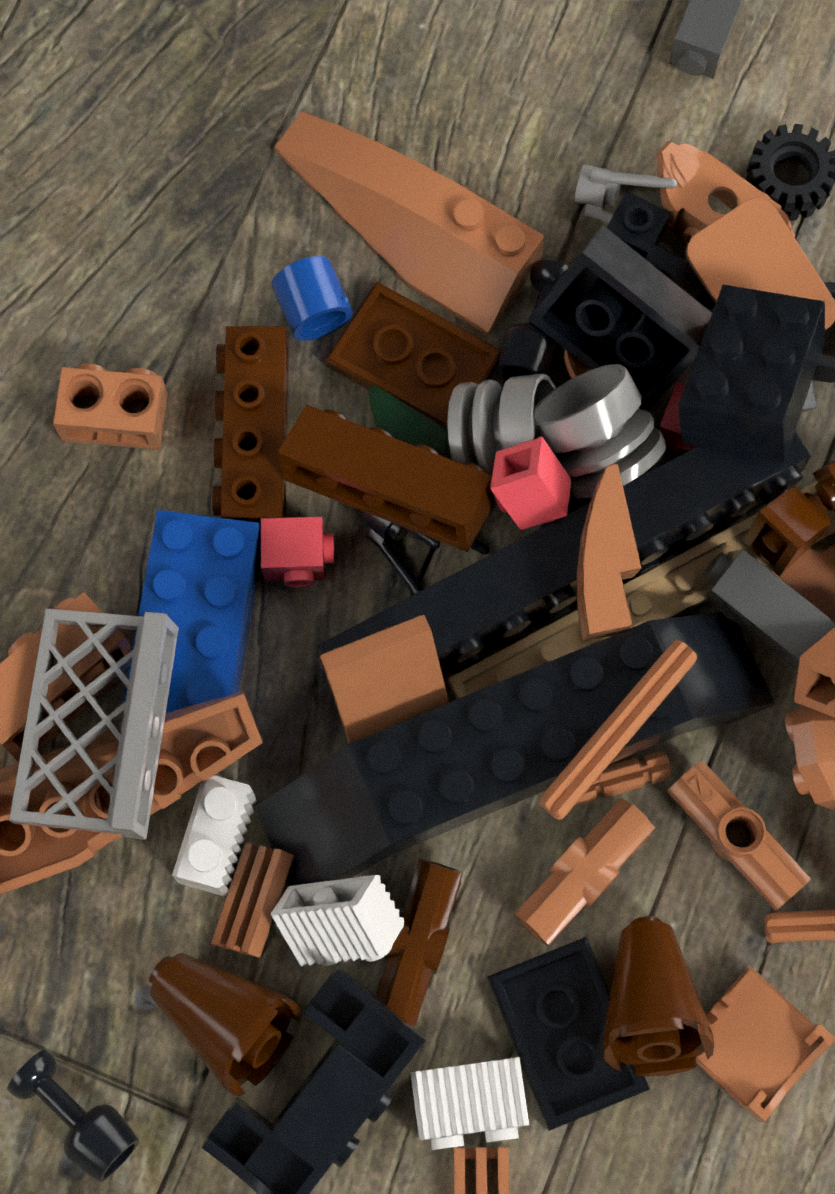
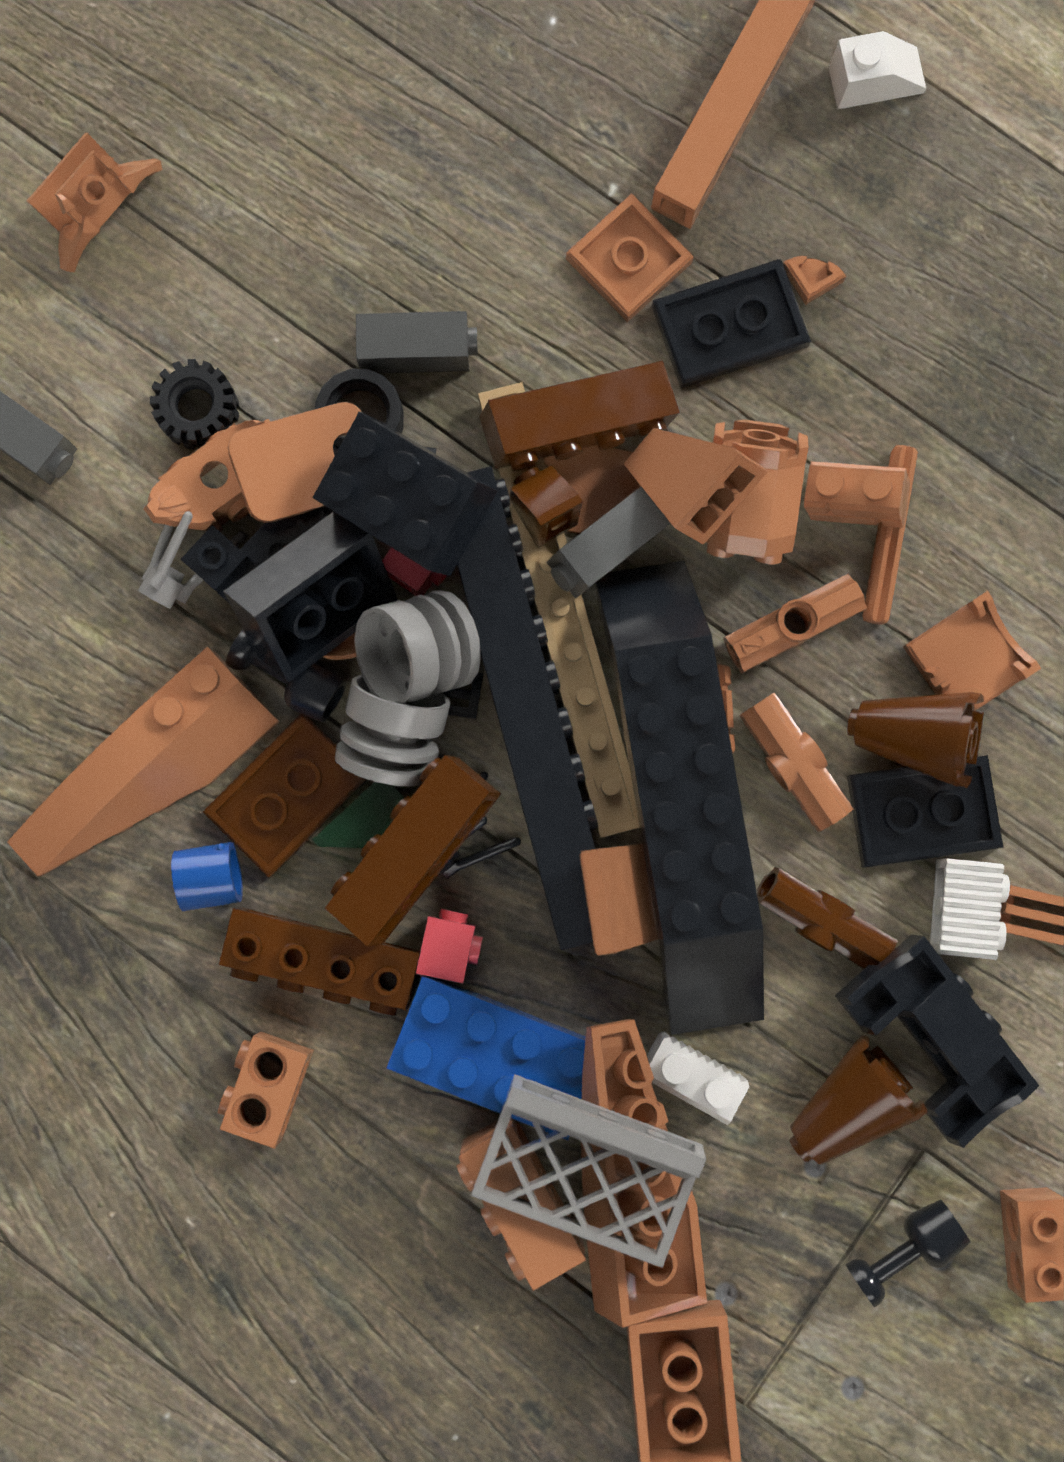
camera: 80 degrees left, 10 degrees up
(251, 900) = (752, 1060): nougat tile -> none
(338, 920) = (799, 986): white brick -> none
(530, 484) = (459, 721): coral brick -> none
(605, 559) = (549, 674): nougat slope -> none
(618, 729) = (713, 703): nougat axle -> none

